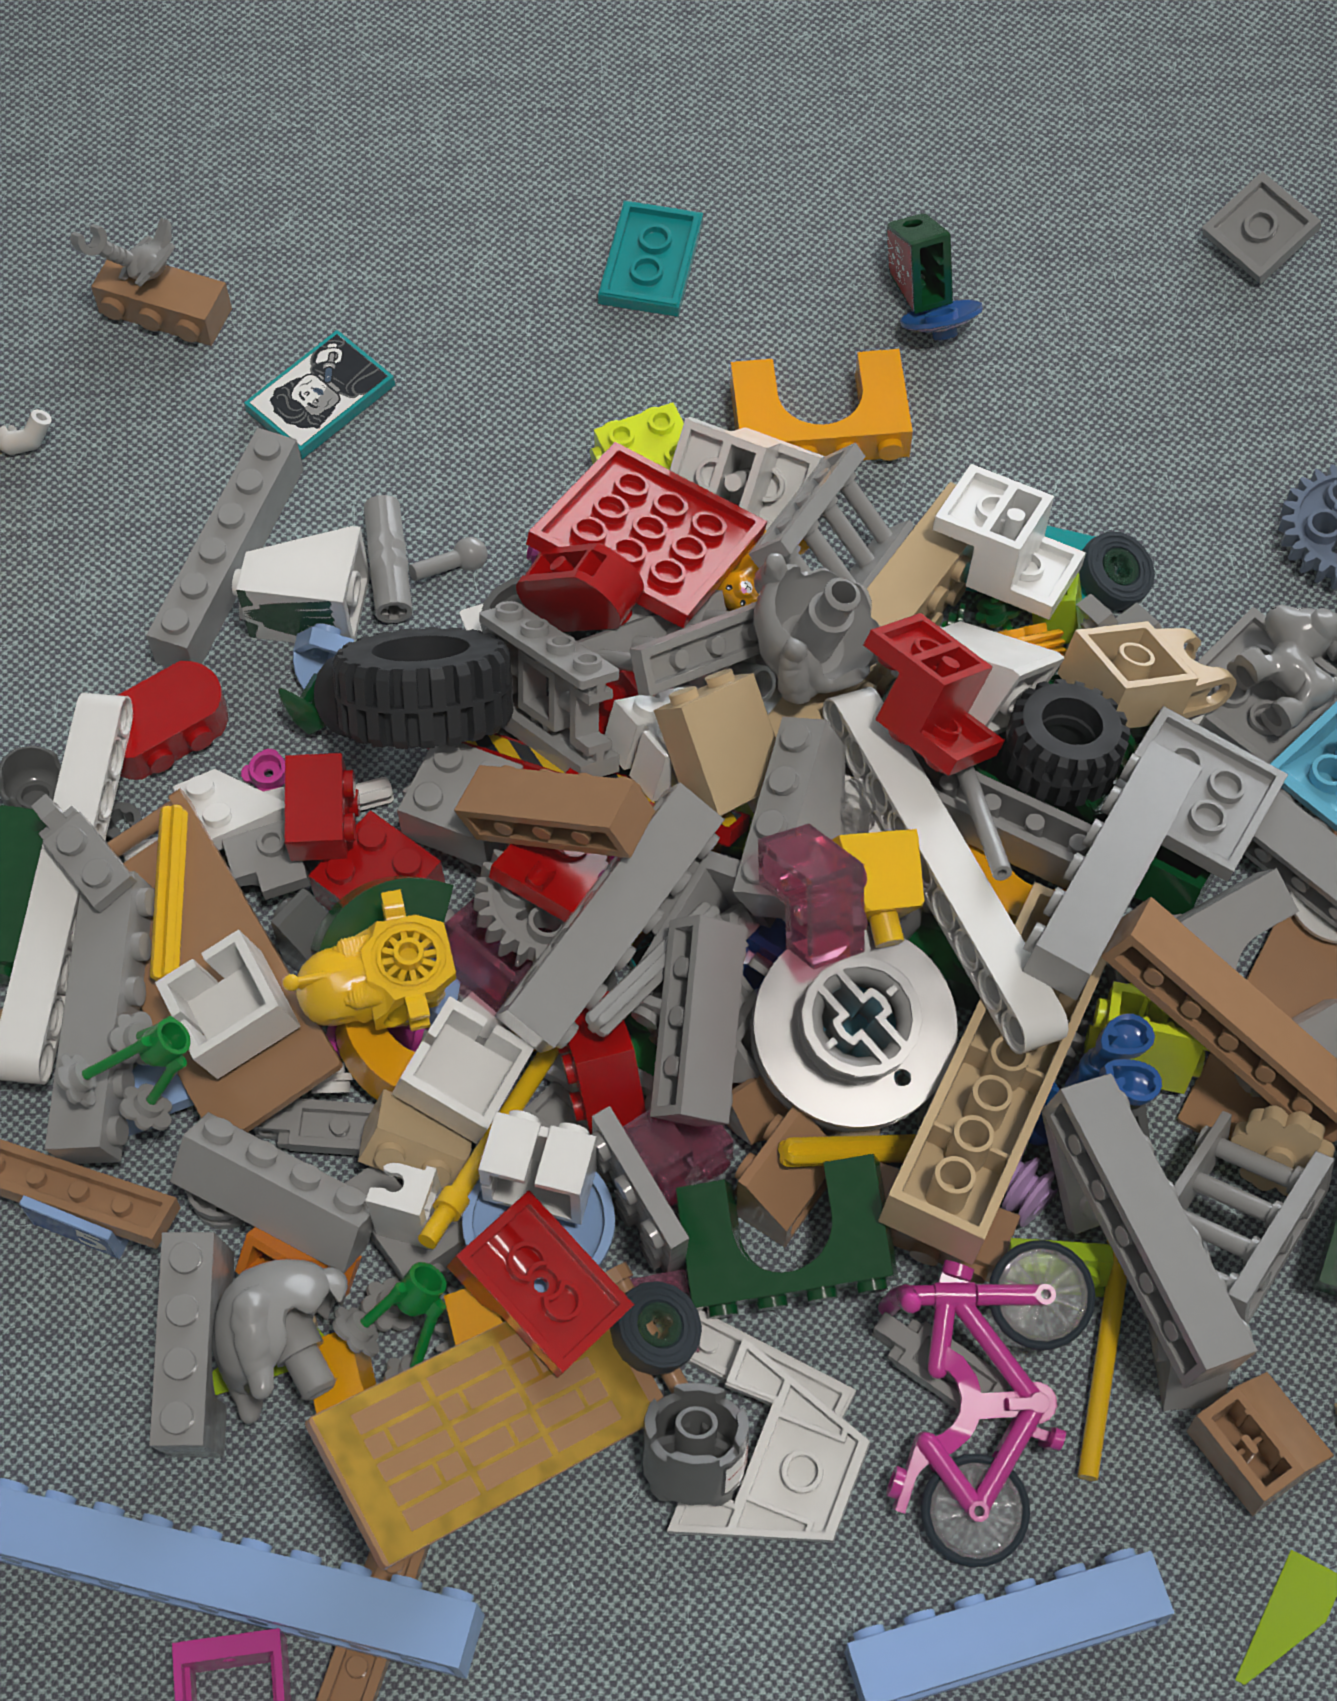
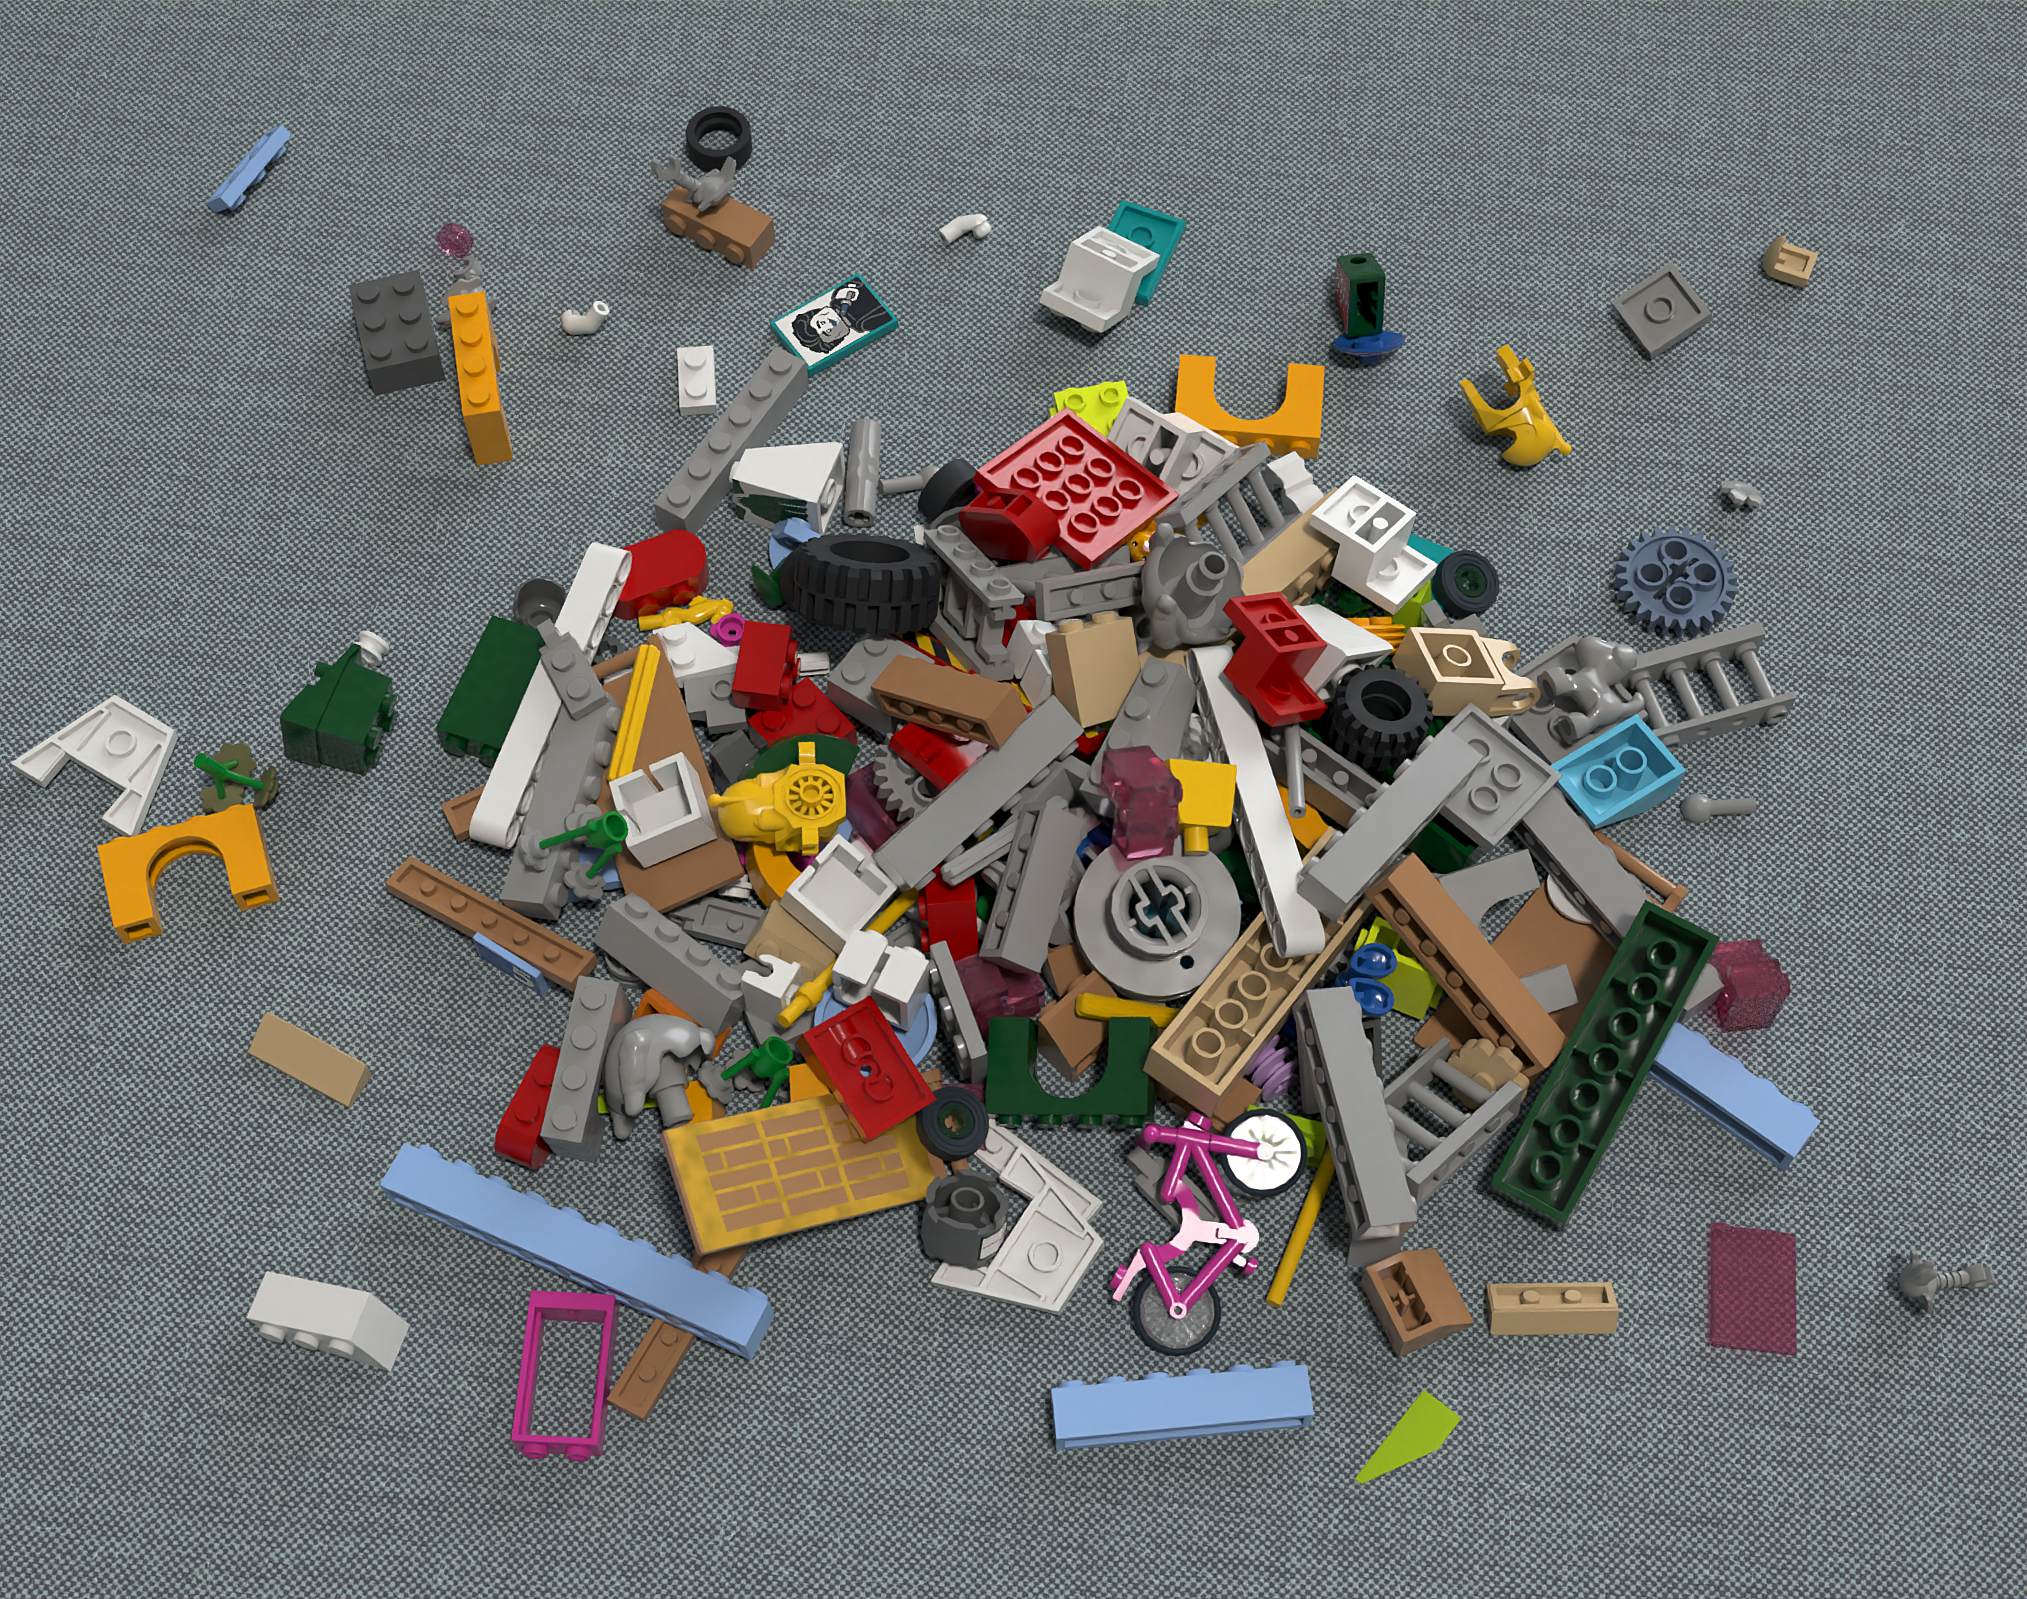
camera: 10 degrees right, 0 degrees up
(125, 1421) = (522, 1123): none -> red brick
(137, 182) = (718, 119): none -> black tyre
(170, 484) = (696, 380): none -> white plate
(223, 755) = (699, 611): none -> yellow animal
(448, 256) = (963, 224): none -> white arm
(494, 560) = (947, 489): none -> black tyre
(619, 293) = (1099, 279): none -> white bracket
(897, 489) = (1297, 484): none -> white leg
(1143, 375) = (1525, 421): none -> yellow helmet

